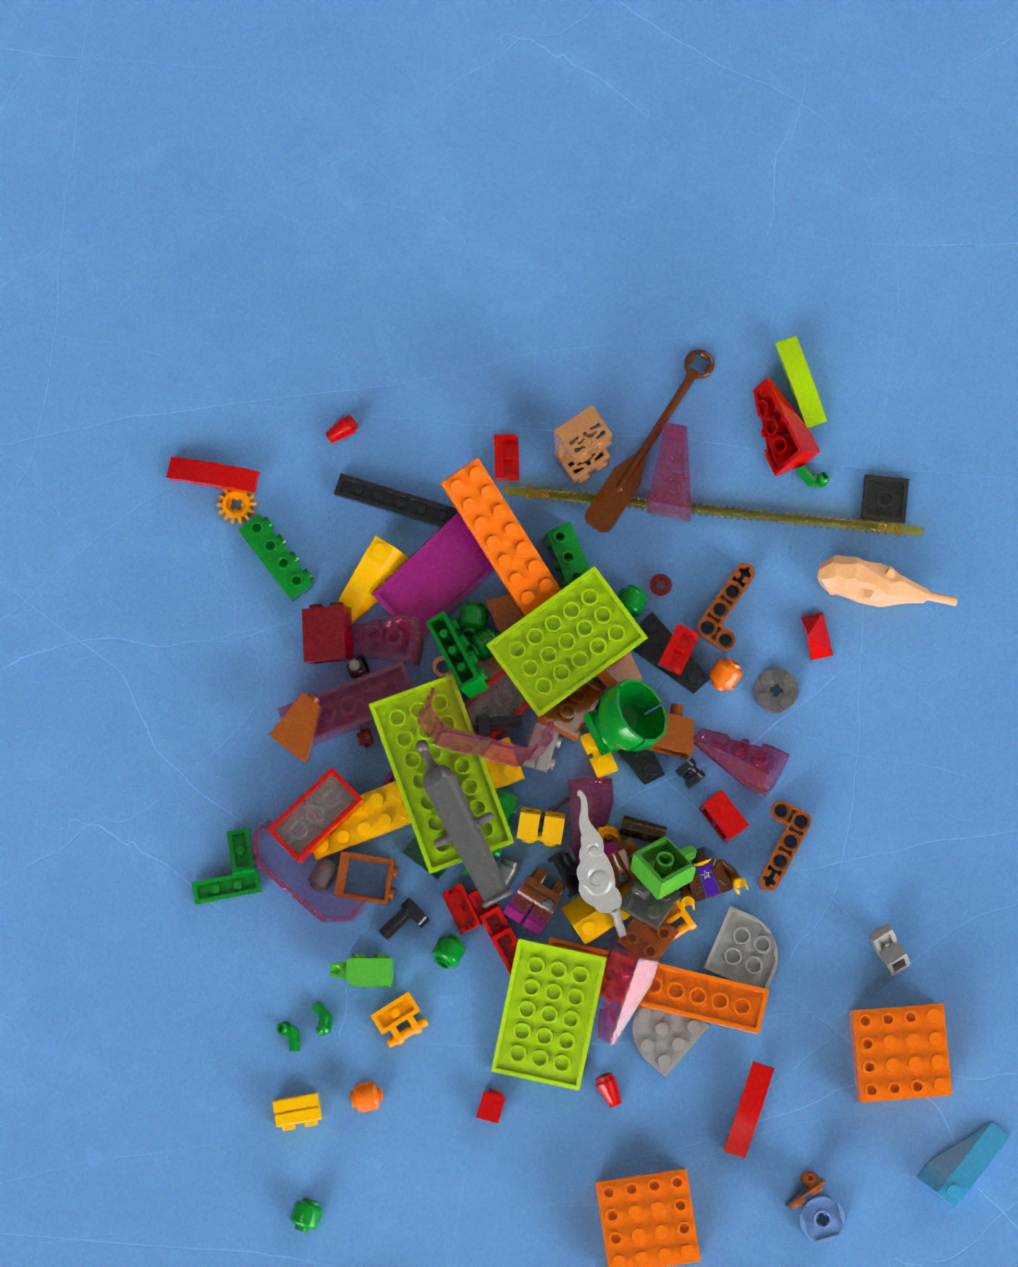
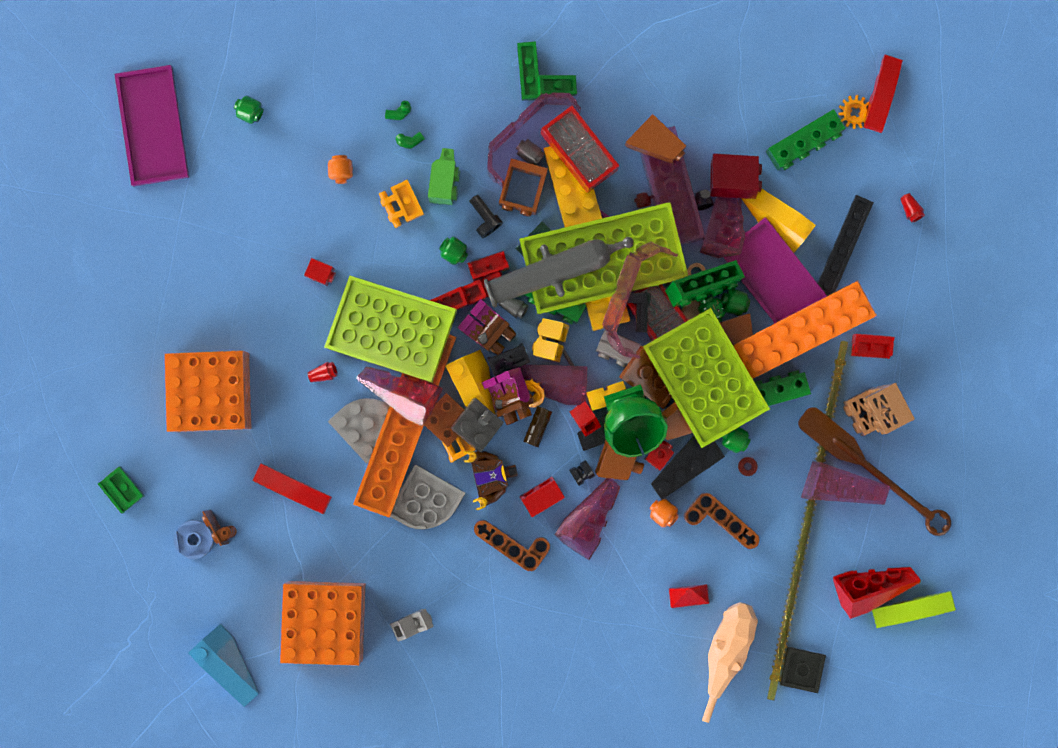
camera: 90 degrees right, 5 degrees up
(297, 1110) = (335, 111): yellow brick -> none
(595, 871) = (504, 380): light grey piece -> none
(628, 776) = (585, 418): none -> red brick
(661, 685) = (660, 455): none -> red brick
(664, 866) = (503, 440): bright green hinge -> none
(678, 649) = (689, 474): red hinge -> none
(768, 680) = (651, 564): flat silver plate -> none
(813, 480) = (825, 609): green arm -> none

